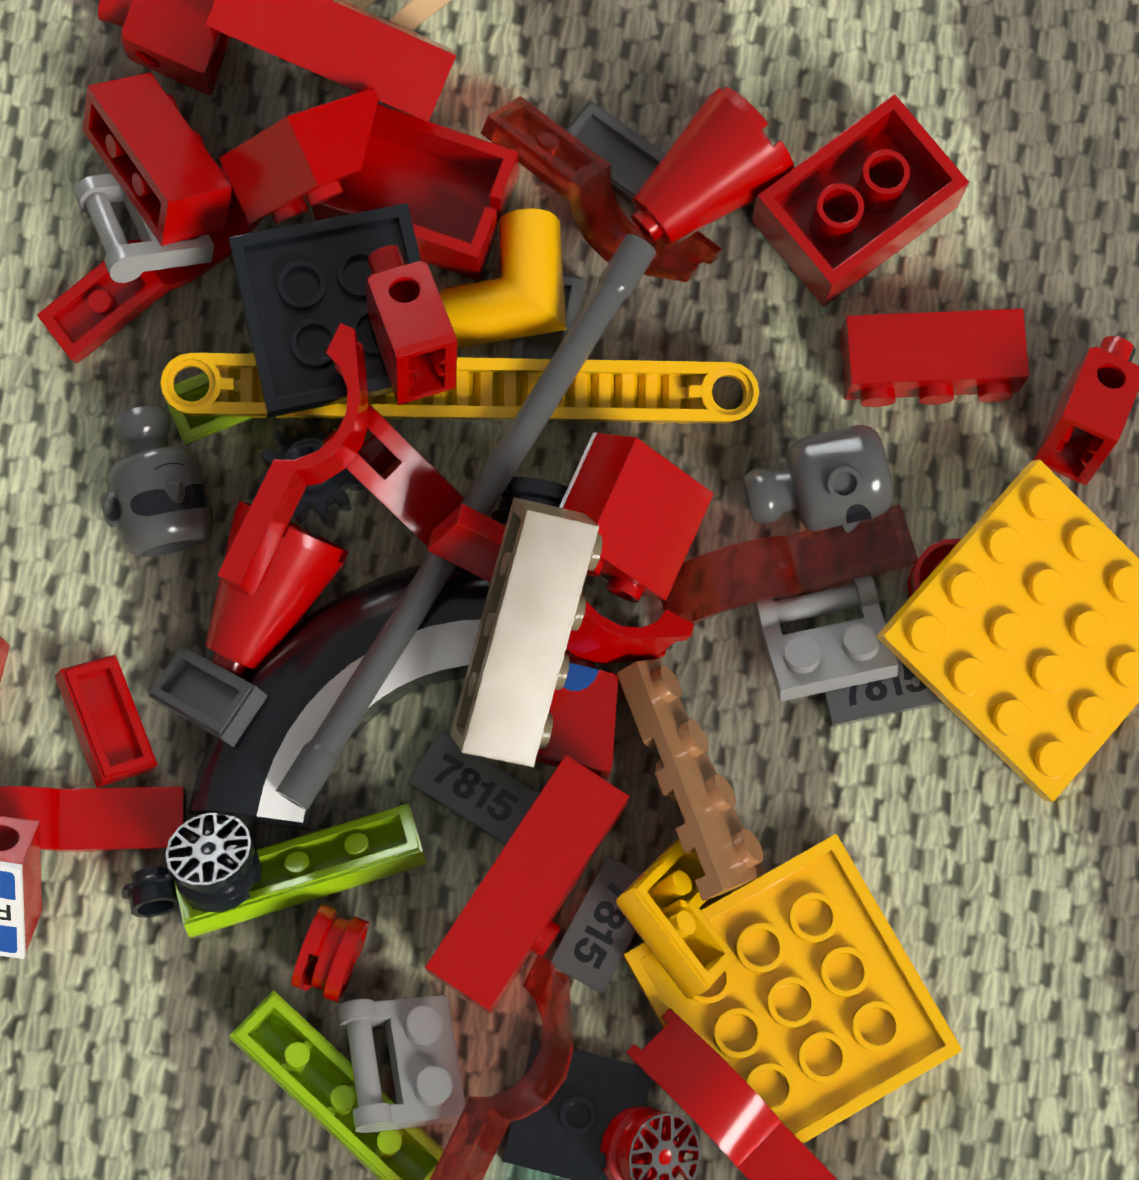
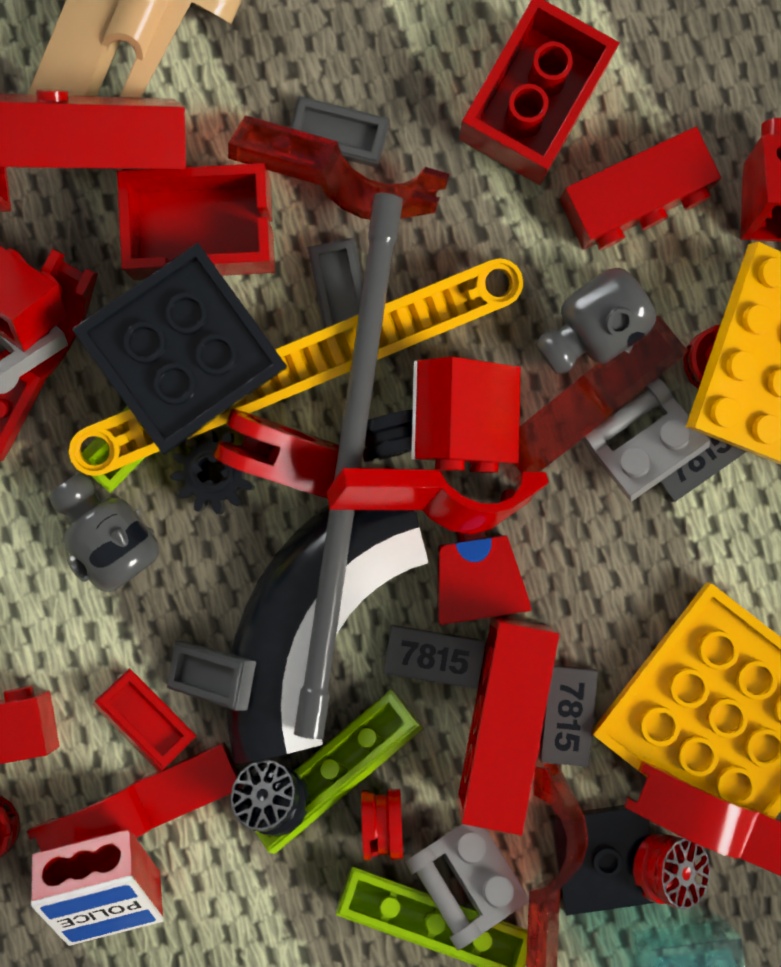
camera: 15 degrees left, 10 degrees up
(151, 892) = (230, 832): black plate -> none
(249, 629) = (218, 573): red cone -> none
(289, 478) = (201, 507): red piece -> none
(301, 158) = (101, 240): red slope -> none
(410, 326) = (242, 342): red torso -> none
(525, 632) = (432, 543): brick -> none
(526, 297) = (316, 272): yellow brick -> none
(667, 916) = (617, 700): yellow brick -> none
(686, 775) = (590, 590): medium nougat wing -> none
(710, 169) = (416, 113): red cone -> none

